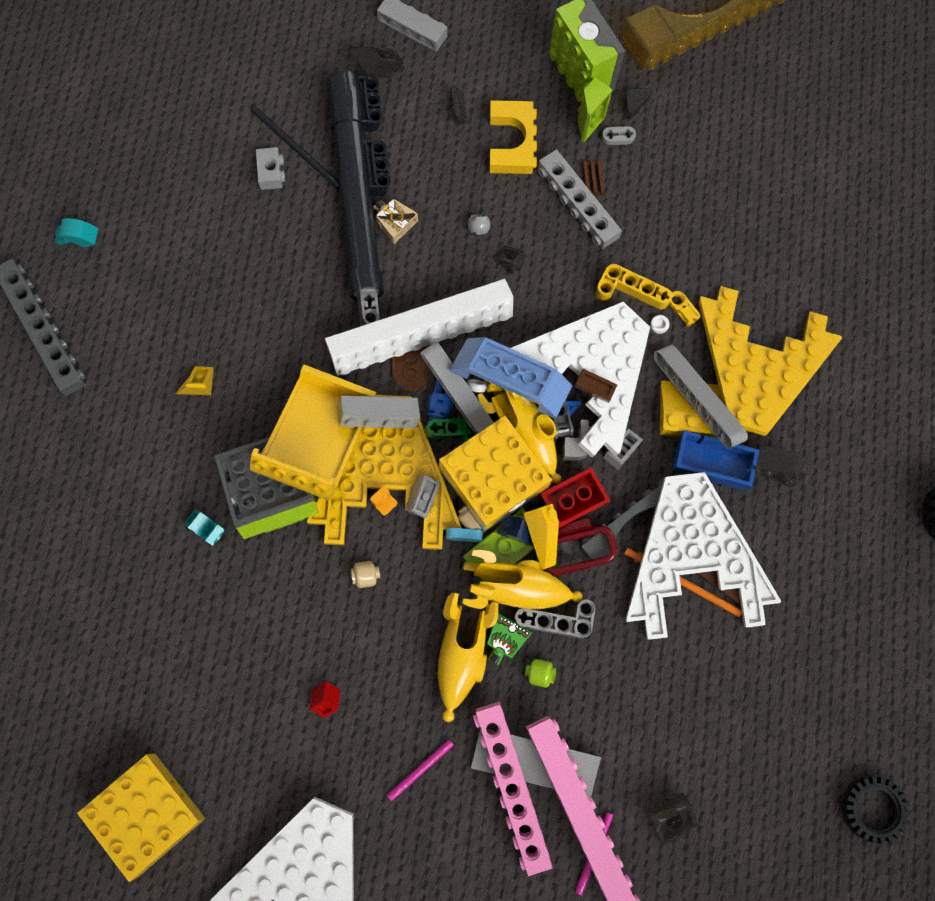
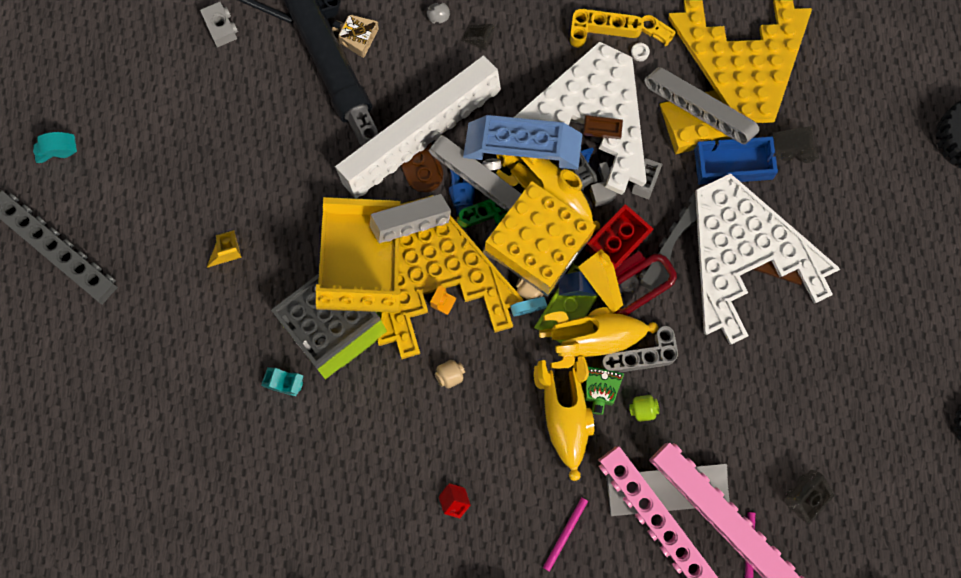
camera: 15 degrees left, 0 degrees up
(422, 496) = (477, 283): light grey slope -> none
(693, 587) = (754, 283): orange bar -> none

